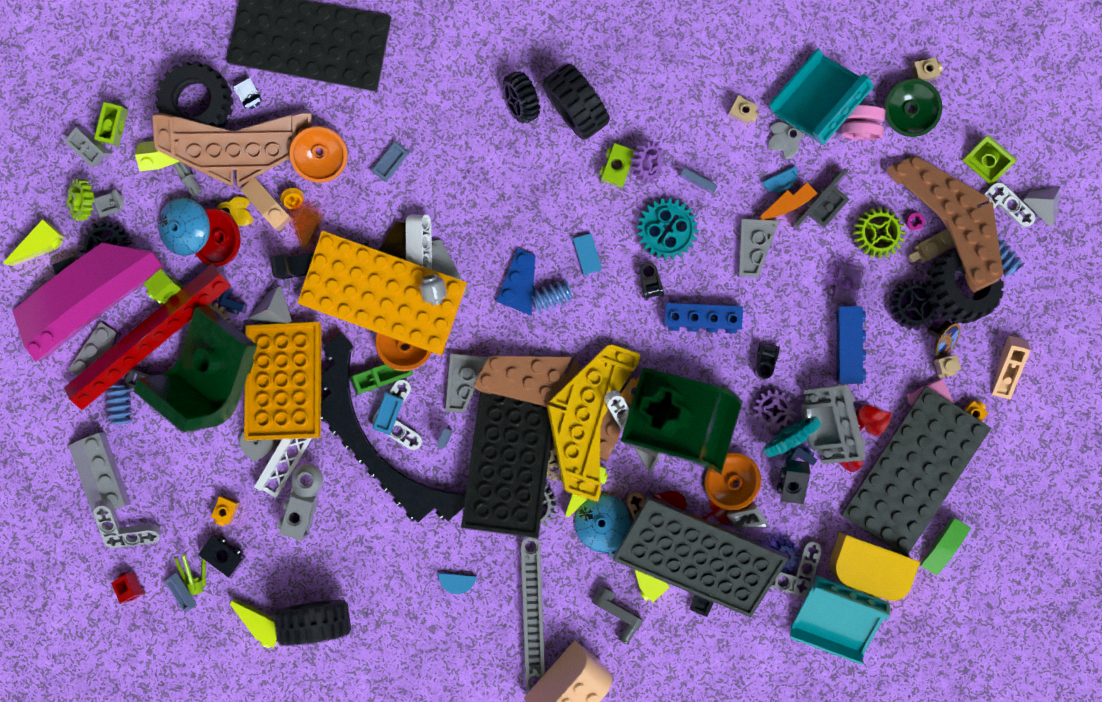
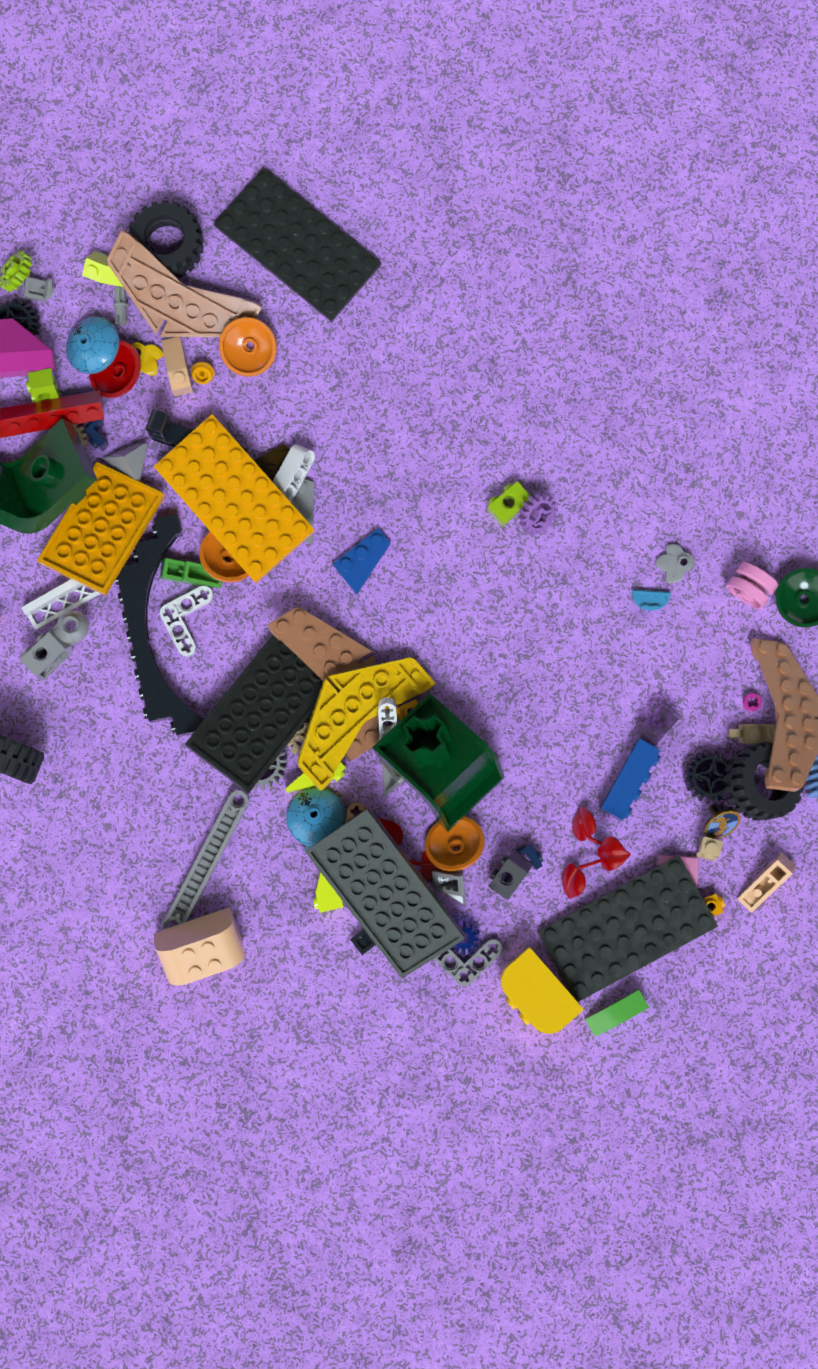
camera: 30 degrees right, 5 degrees down
(87, 147) = (48, 229): light grey hinge -> none
(111, 124) = (80, 221): lime brick -> none
(247, 93) = (216, 260): bracket -> none
(256, 449) = (44, 576): light grey piece -> none
(306, 225) = (201, 403): clear orange slope -> none
(387, 413) = (178, 609): dark azure tile -> none
(390, 161) = (308, 389): sand blue tile -> none
(433, 289) = (280, 518): light grey head -> none
(444, 438) = (216, 658): sand blue tile -> none
(456, 583) = (153, 797): dark azure tile -> none
(461, 377) = (262, 612): light grey wing -> none
(521, 97) = (456, 394): black gear -> none
(552, 296) = (384, 586): medium blue piece -> none
(576, 101) = (502, 424): black tyre -> none
(587, 254) = (438, 567): dark azure tile -> none
(603, 599) = (277, 886): dark grey beam -> none
(651, 282) = (481, 624): black piece -> none
(653, 219) = (514, 569): teal gear -> none
(698, 180) = (574, 556): sand blue tile -> none
(703, 316) = (510, 680): blue brick -> none
(737, 113) = (643, 516): tan brick -> none
(754, 245) = (594, 642): light grey wing -> none
(766, 359) = (548, 750): black piece -> none
(773, 401) = (534, 792): medium lavender gear -> none
(789, 202) = (645, 622): orange slope -> none
(792, 436) = (530, 830): teal gear -> none
(820, 97) = (725, 541): teal panel -> none
(827, 204) = (678, 642): dark grey bracket -> none
(838, 619) = (480, 1023): teal panel -> none
(839, 432) = (574, 841): light grey slope -> none
(886, 237) = (729, 686): lime gear -> none

